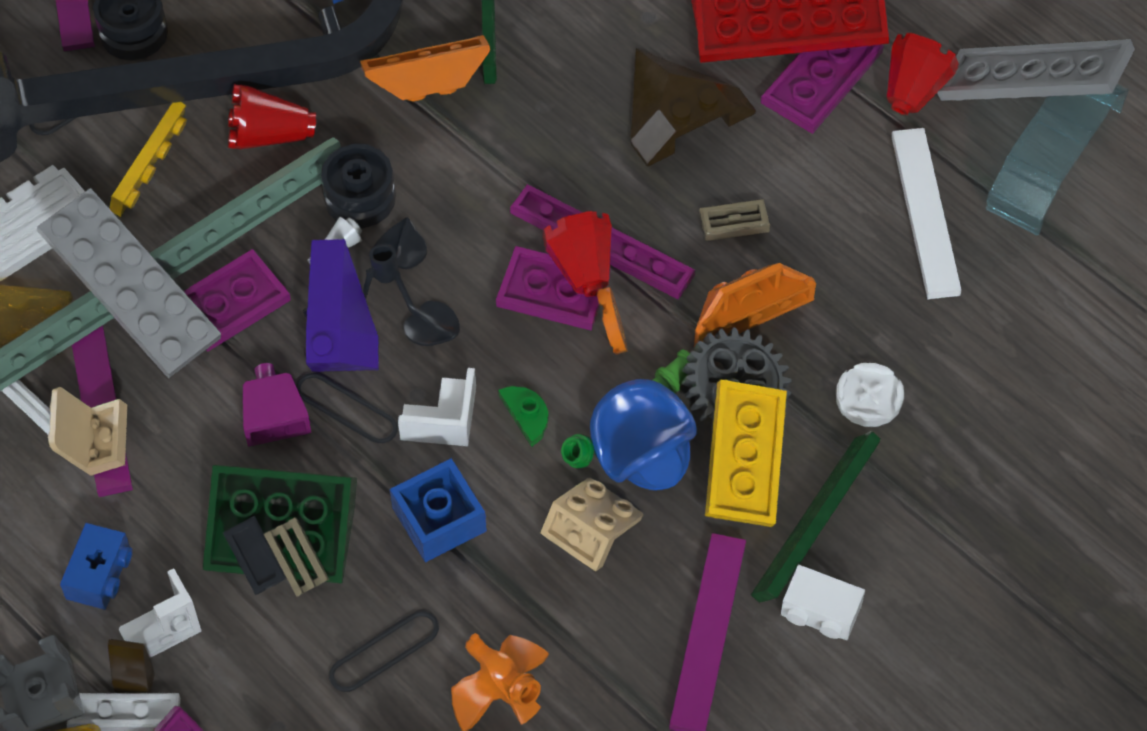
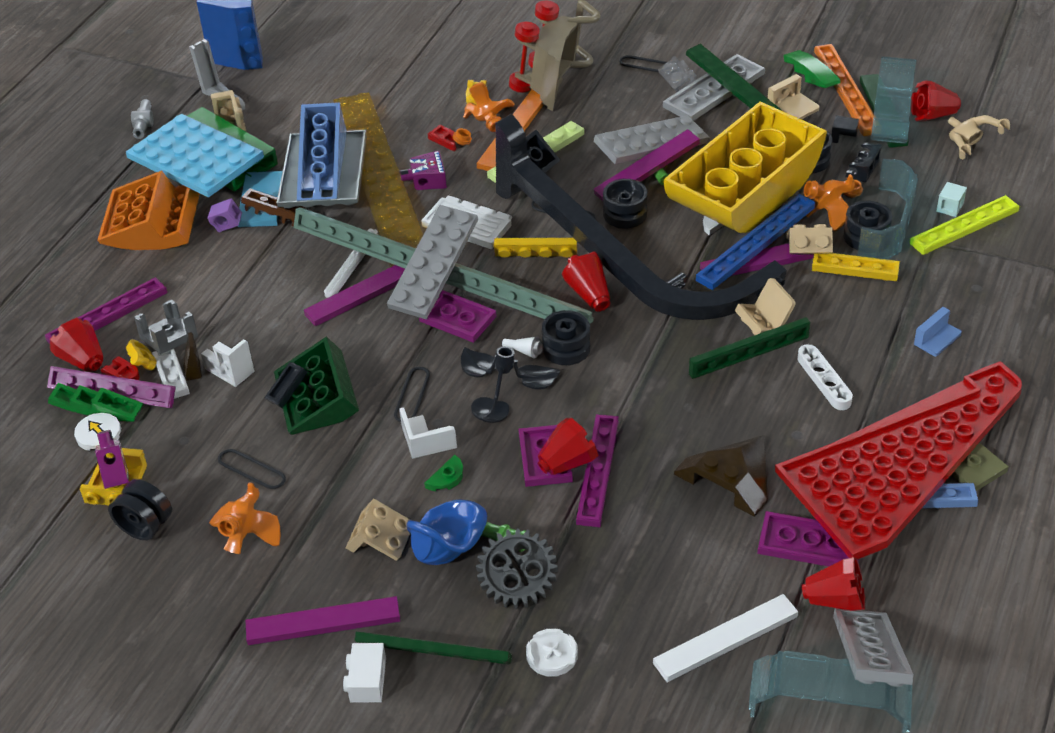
camera: 70 degrees right, 15 degrees down
(85, 435) = (329, 281): tan bracket -> none
(96, 566) = (254, 325): blue brick -> none
(272, 407) = (391, 358): magenta torso -> none
(284, 563) = (292, 402): dark tan tile -> none
(338, 316) = (459, 359): dark purple wedge -> none
(428, 69) = (669, 334): orange wedge -> none
(438, 510) = (349, 451): blue brick -> none
(577, 451) = (424, 506): green plate -> none
(612, 321) = (528, 486): orange tile -> none
(735, 224) = (652, 538): dark tan tile -> none
(746, 453) = (459, 588): yellow plate -> none
(754, 299) = (584, 554): orange wedge -> none

